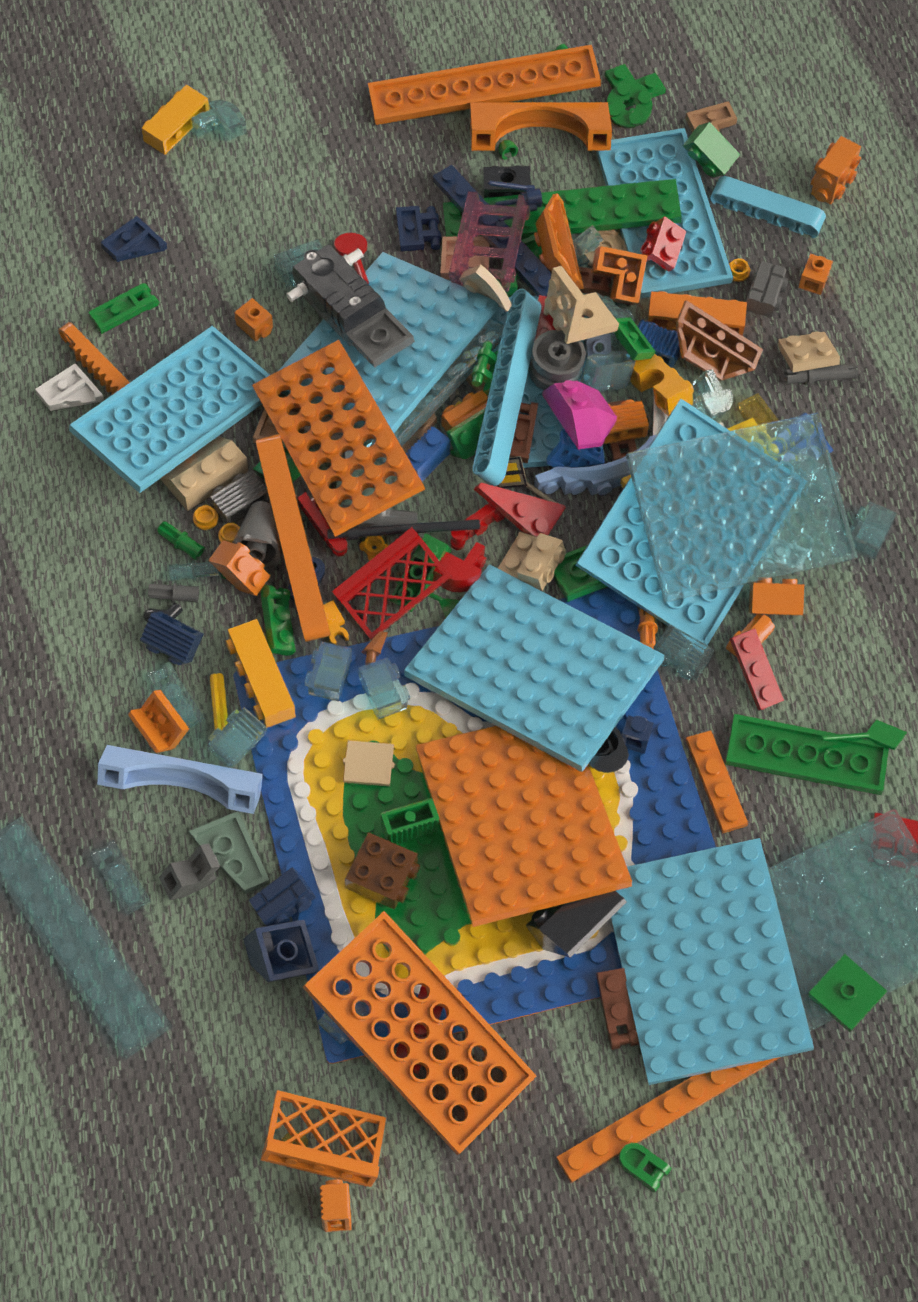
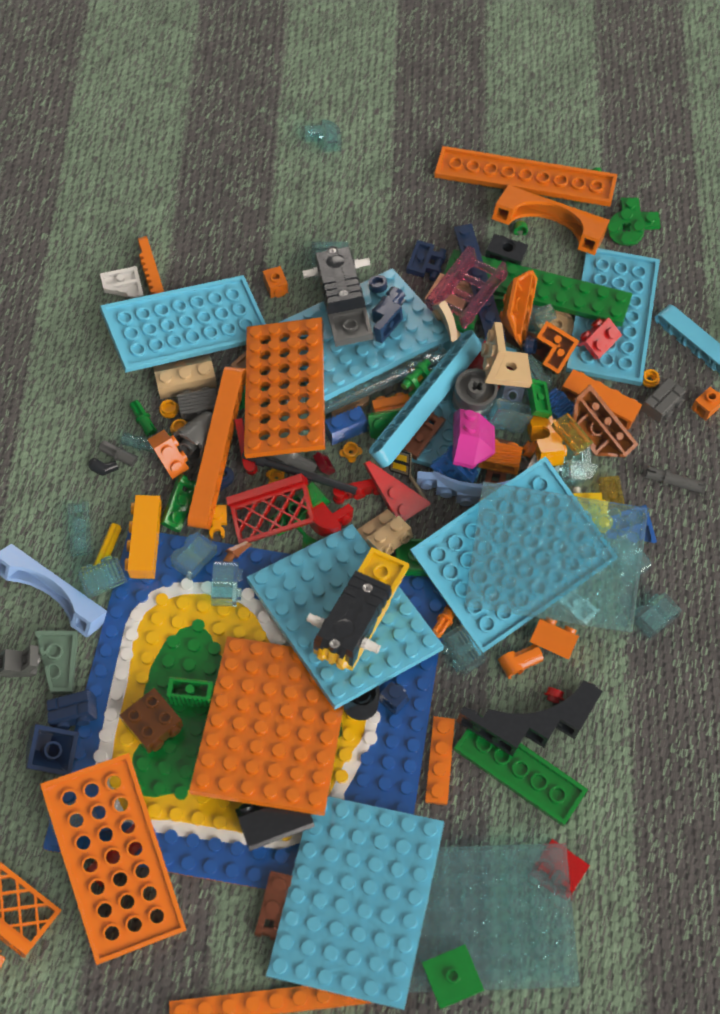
camera: 25 degrees right, 0 degrees up
(123, 308) = (191, 240): green plate -> none
(133, 241) = (221, 196): dark blue wing -> none
(159, 723) = (56, 543): orange bracket -> none
(171, 638) = (97, 485): dark blue brick -> none
(174, 119) = (293, 123): light orange brick -> none
(349, 242) = (376, 256): red piece -> none
(368, 763) = (188, 635): tan piece -> none
(379, 276) = (378, 284): none -> dark blue tile
(413, 305) = (388, 313): none -> dark blue plate
(422, 508) = (324, 463): none -> dark red tile
(444, 477) = (350, 446): none -> light orange plate
(531, 195) = (513, 268): dark blue plant -> none
(557, 652) = (358, 611): none -> black piece
(590, 282) = (530, 345): none -> dark blue plate
(647, 399) = (529, 448): none -> orange plate
(689, 364) = (572, 434): none -> clear yellow plate
(711, 150) = (670, 282): brick -> none
(718, 115) = (679, 261): medium nougat plate -> none
(756, 669) = (512, 683): plate -> none
(779, 715) = (509, 729): none -> black arch
(804, 660) = (554, 695): none -> red plate
(808, 351) = (673, 459): tan plate -> none
(879, 732) = (586, 778): green piece -> none

